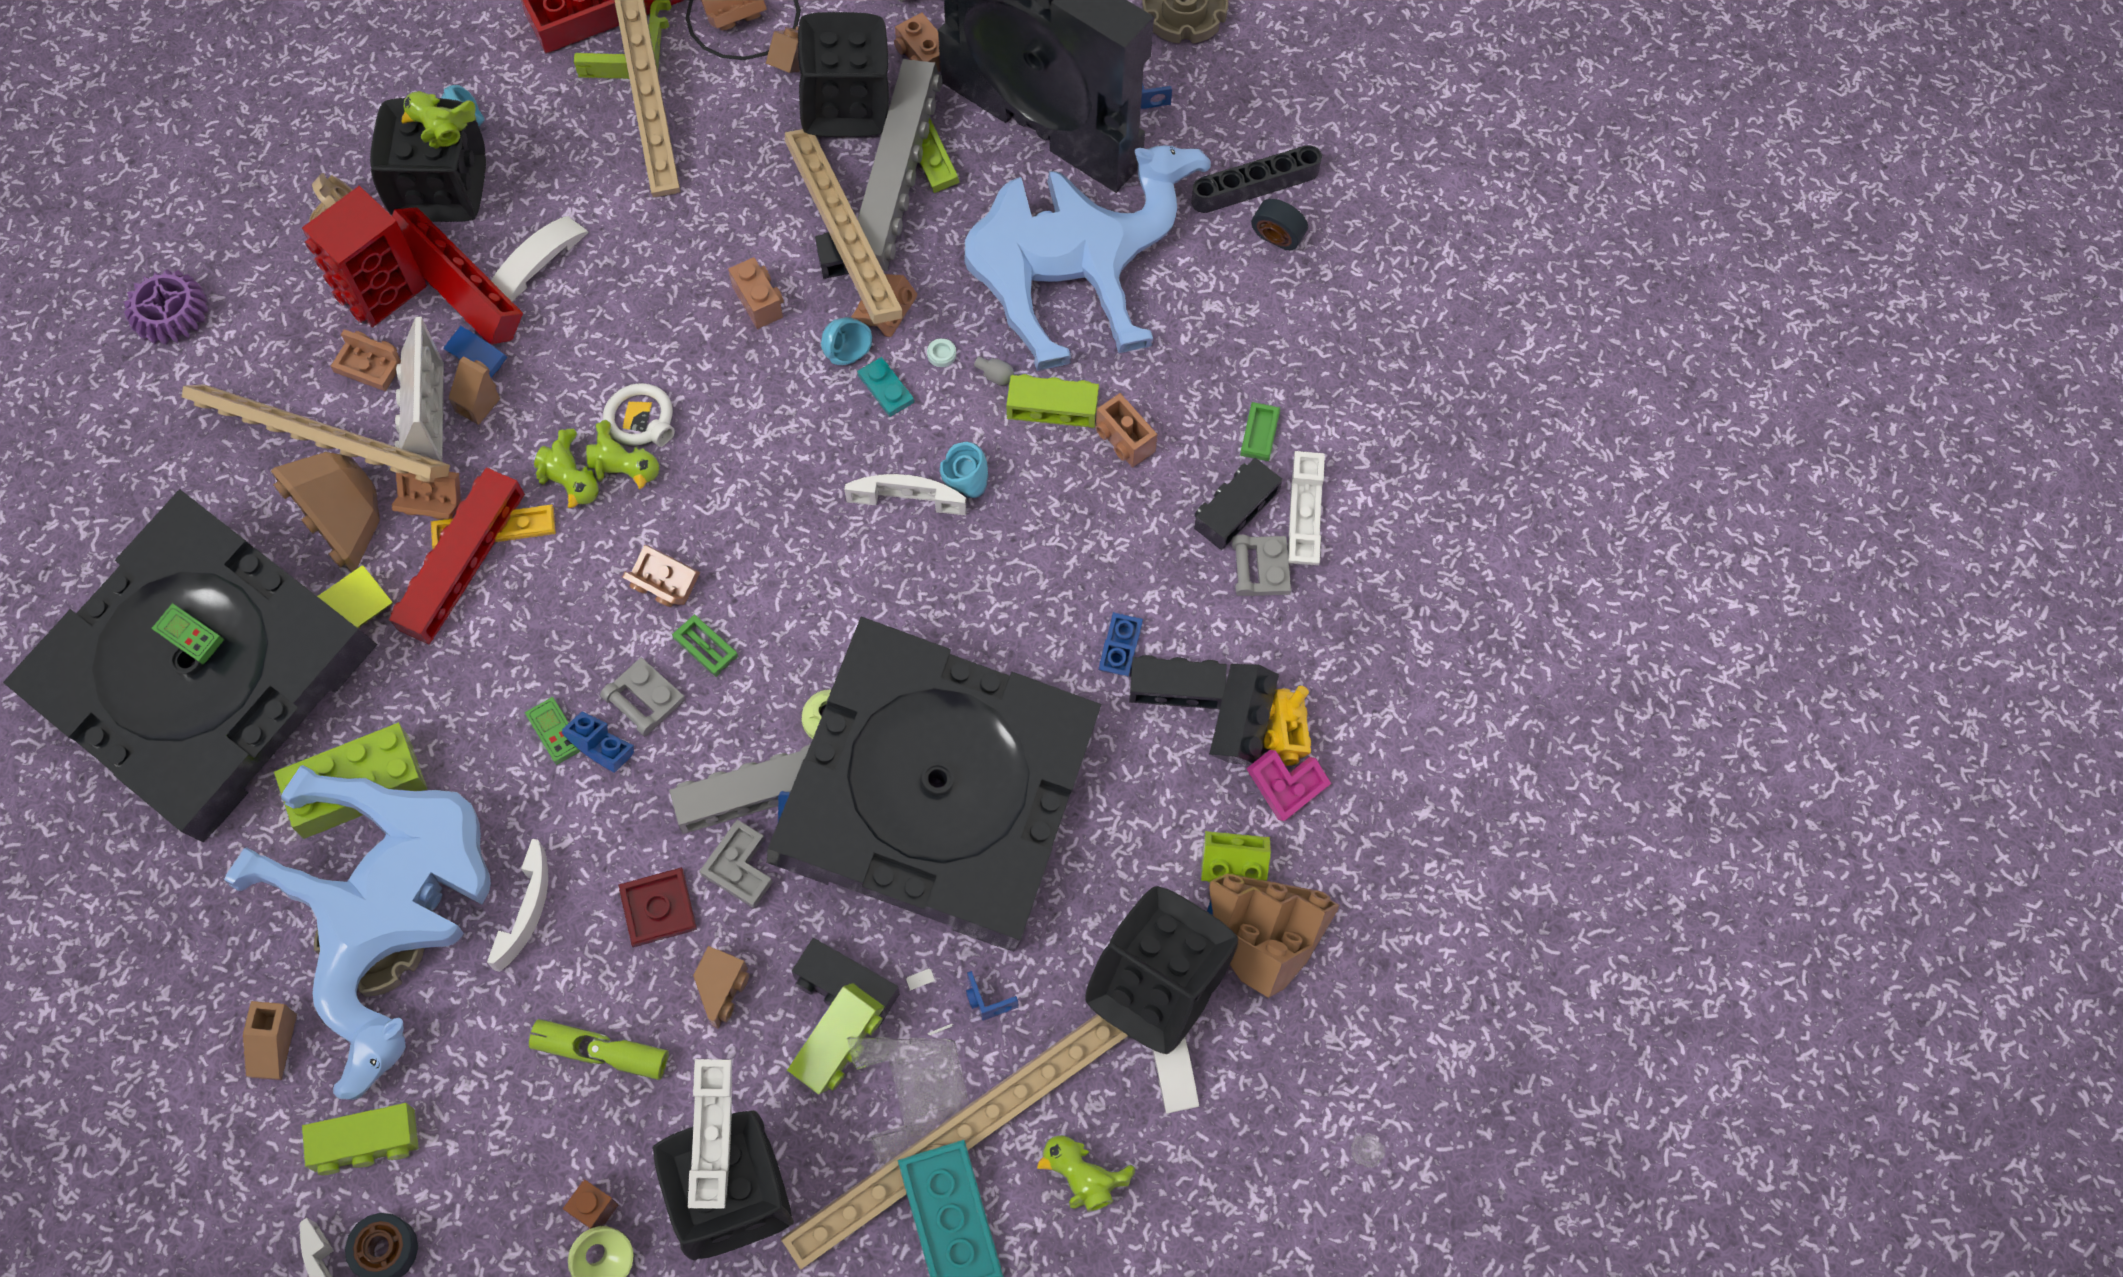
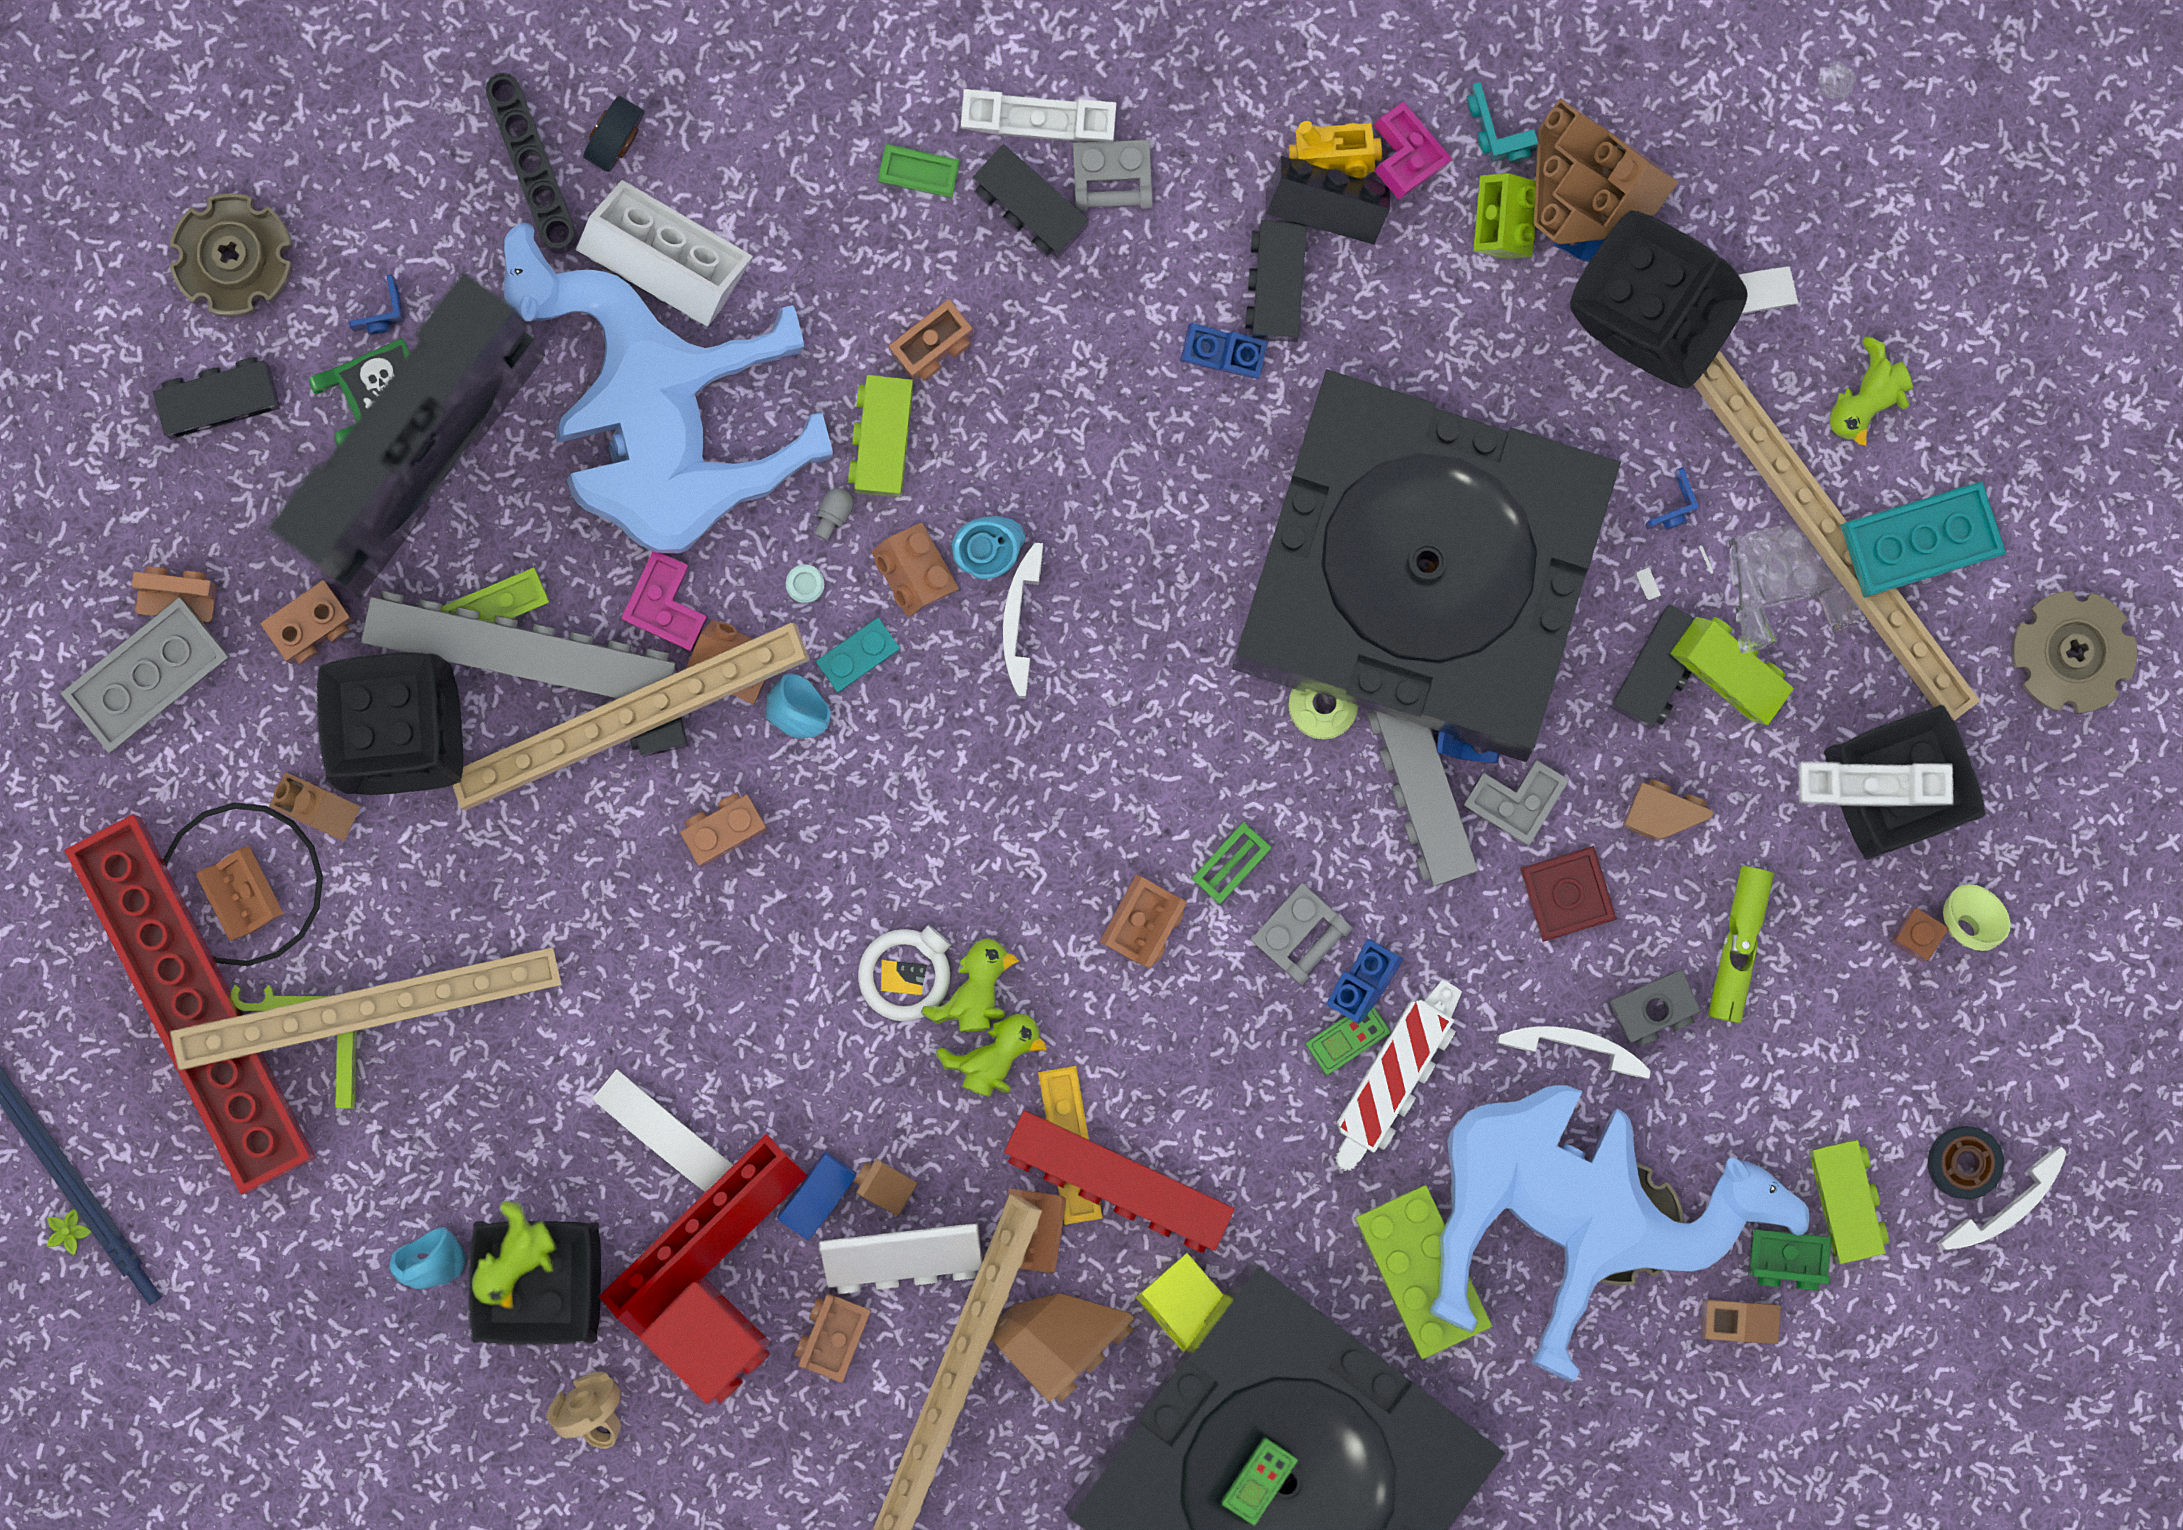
camera: 90 degrees left, 20 degrees up
(312, 1086) = (1789, 1258): none -> green bracket
(518, 762) = (1395, 1073): none -> white hinge
(541, 956) = (1672, 992): none -> dark grey brick
(927, 254) = (654, 606): none -> dark pink plate
(951, 423) = (914, 569): none -> nougat bracket
(1192, 260) = (663, 252): none -> white slope
(1295, 868) = (1513, 147): none -> teal bracket

